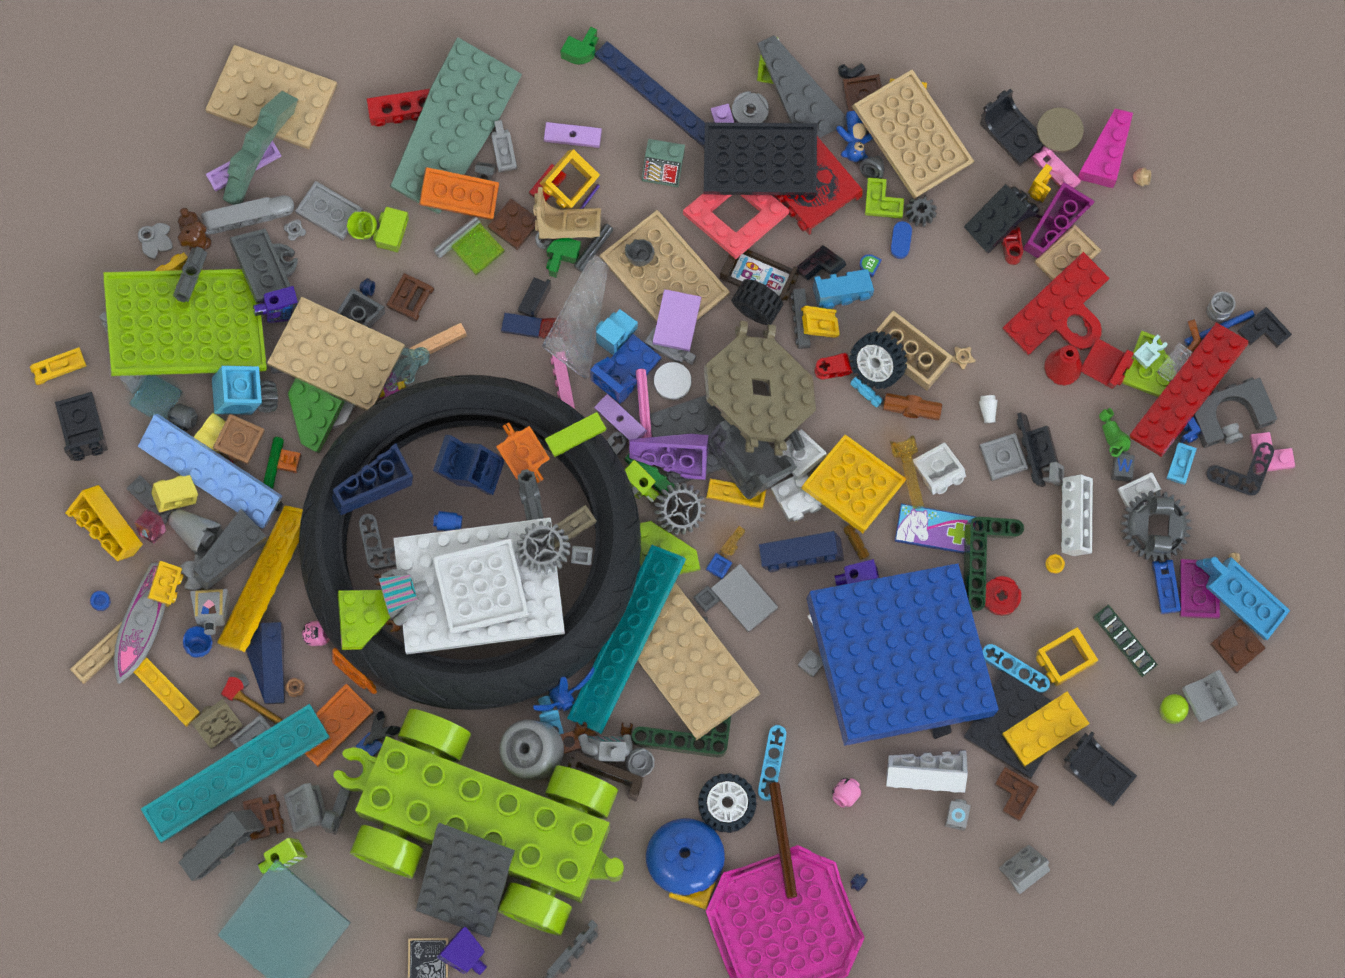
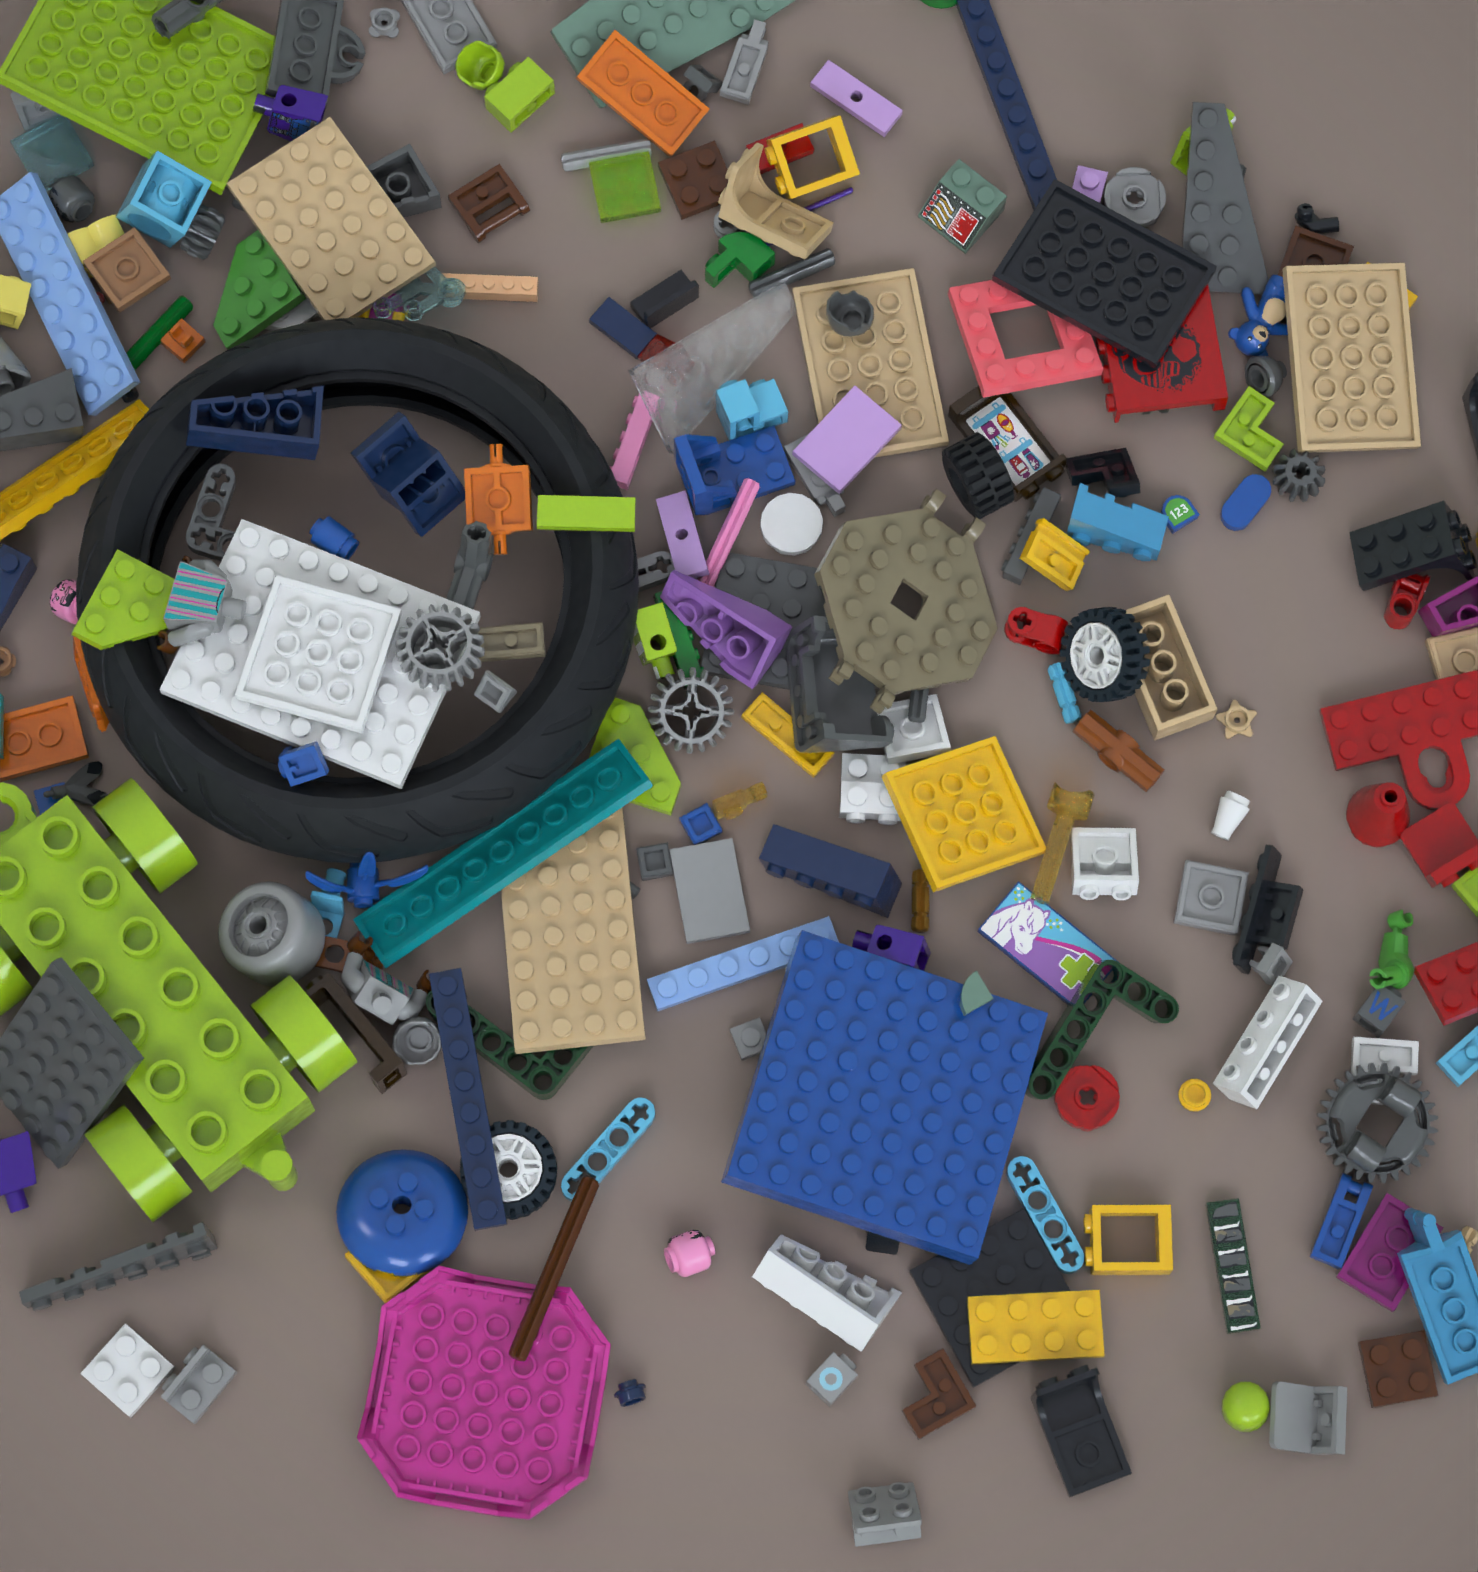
camera: 30 degrees right, 0 degrees up
(367, 287) = (437, 157): dark blue plate -> none
(505, 649) = (302, 763): none -> blue bracket
(686, 777) = (468, 1099): none -> dark blue plate
(780, 630) = (731, 966): none -> light blue plate
(916, 574) = (974, 994): none -> sand green tile

